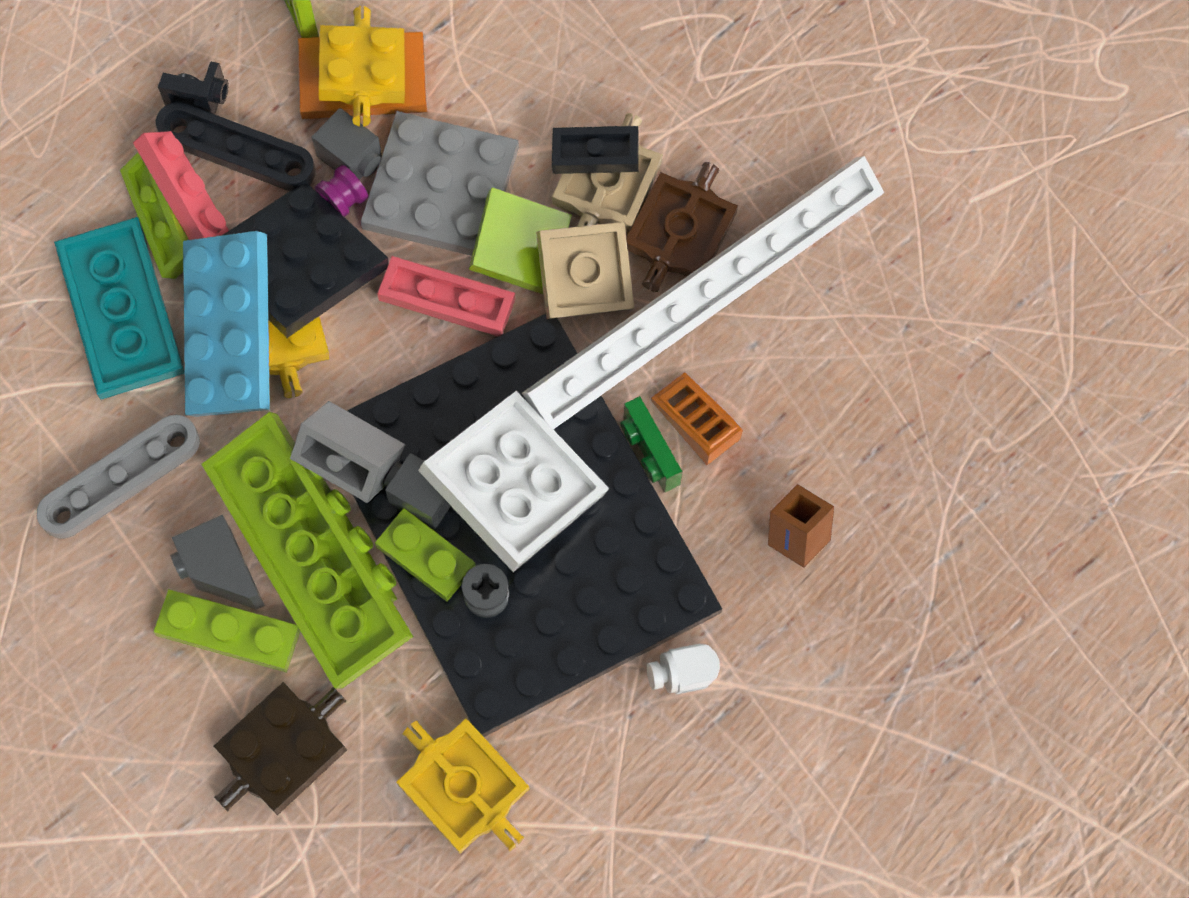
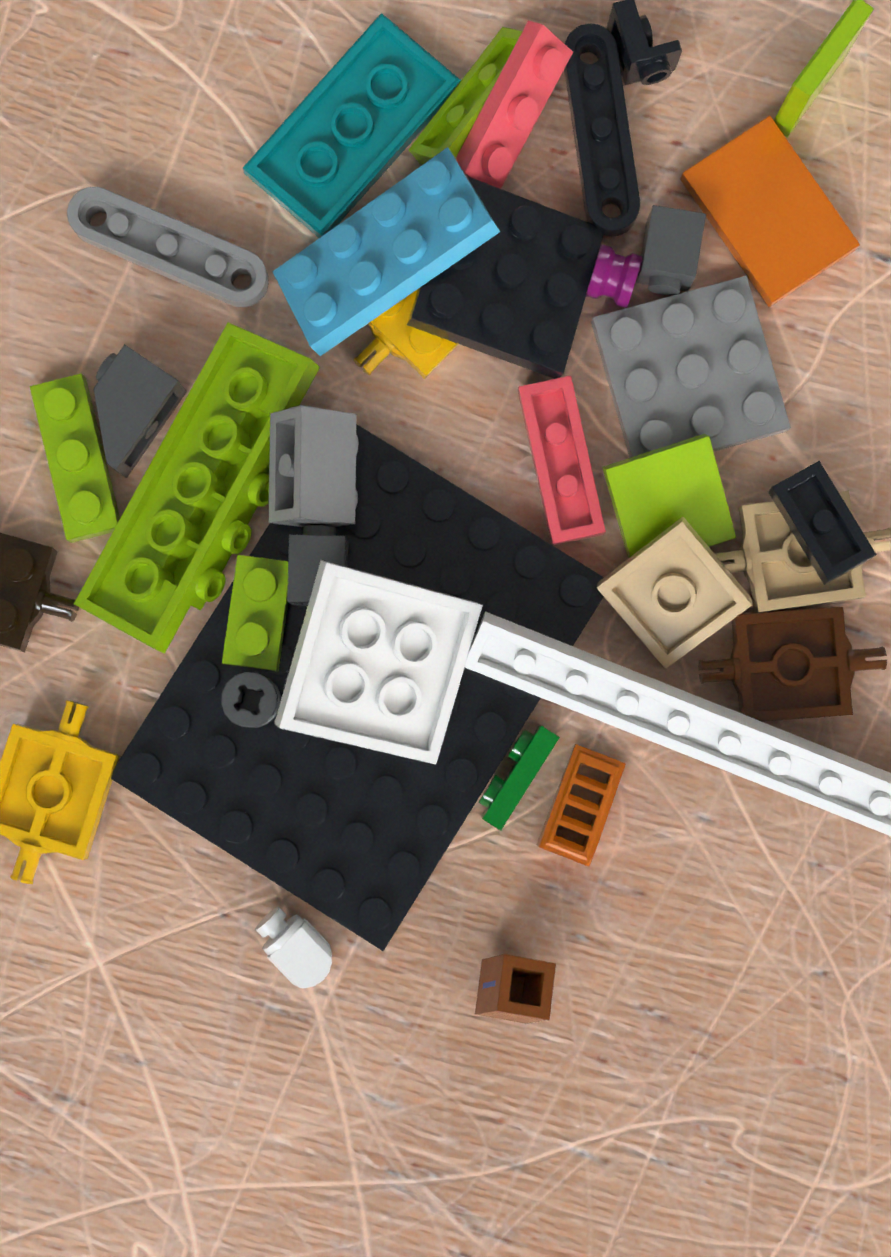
camera: 65 degrees right, 15 degrees up
(361, 65) = (772, 204): yellow plate -> none

